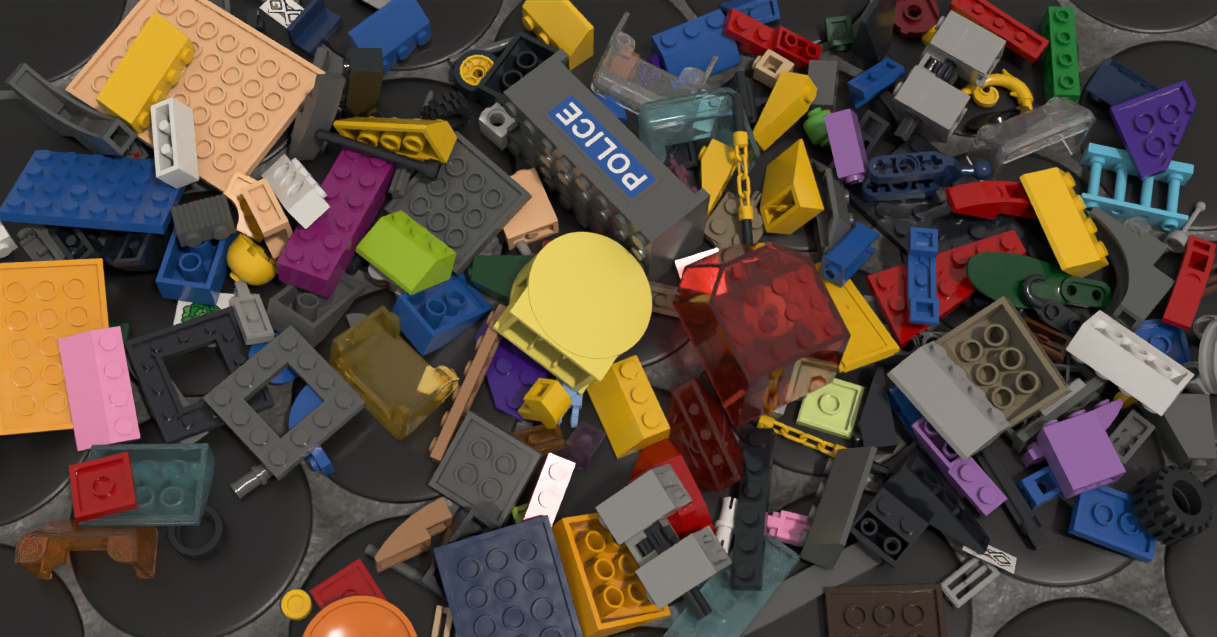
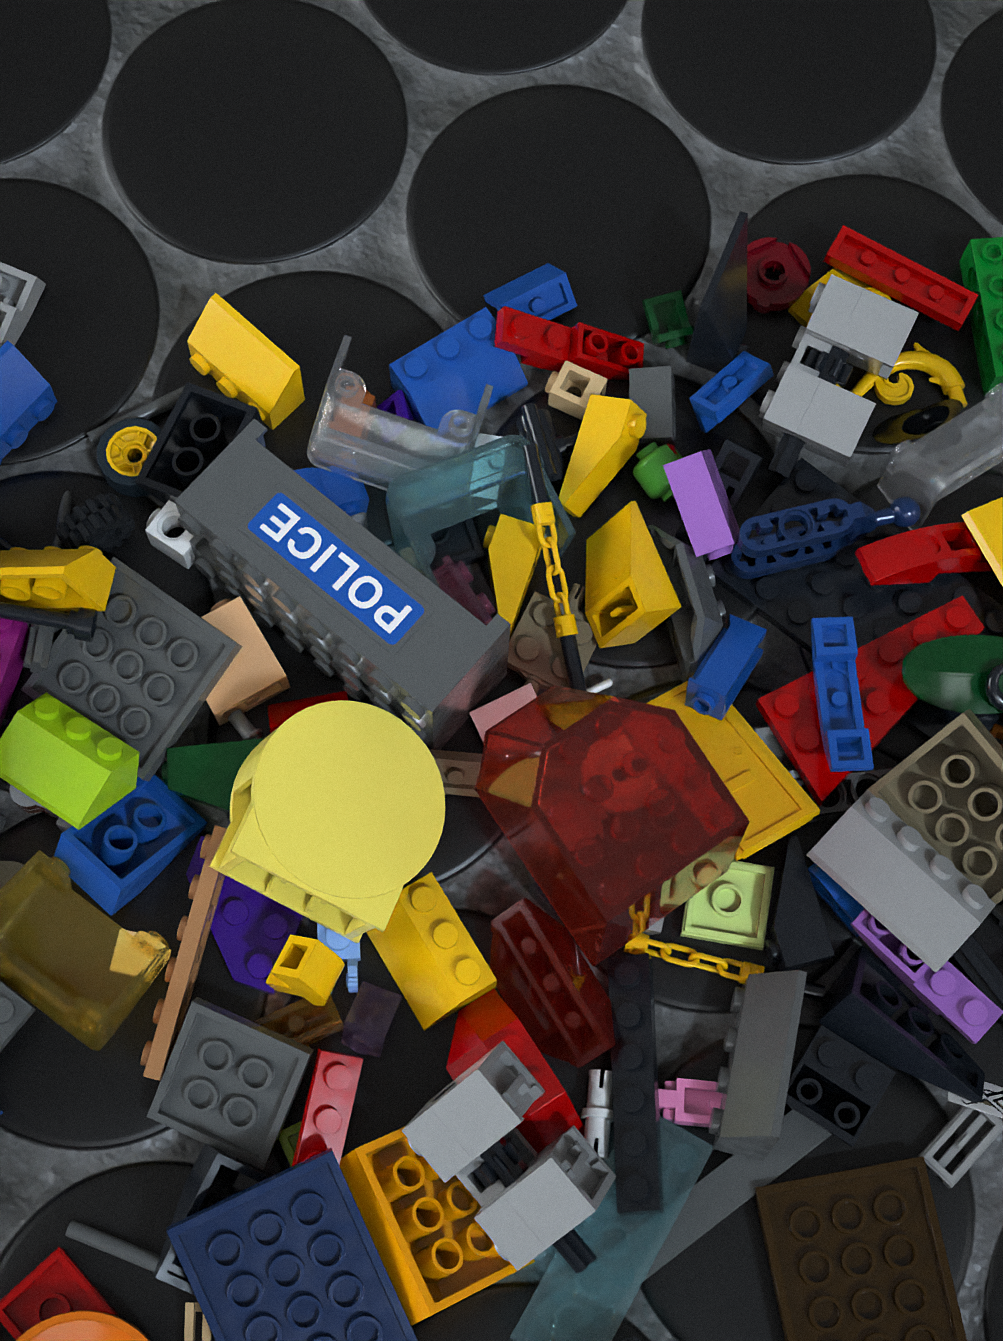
camera: 10 degrees left, 5 degrees up
(414, 535) = (135, 1201): medium nougat slope -> none

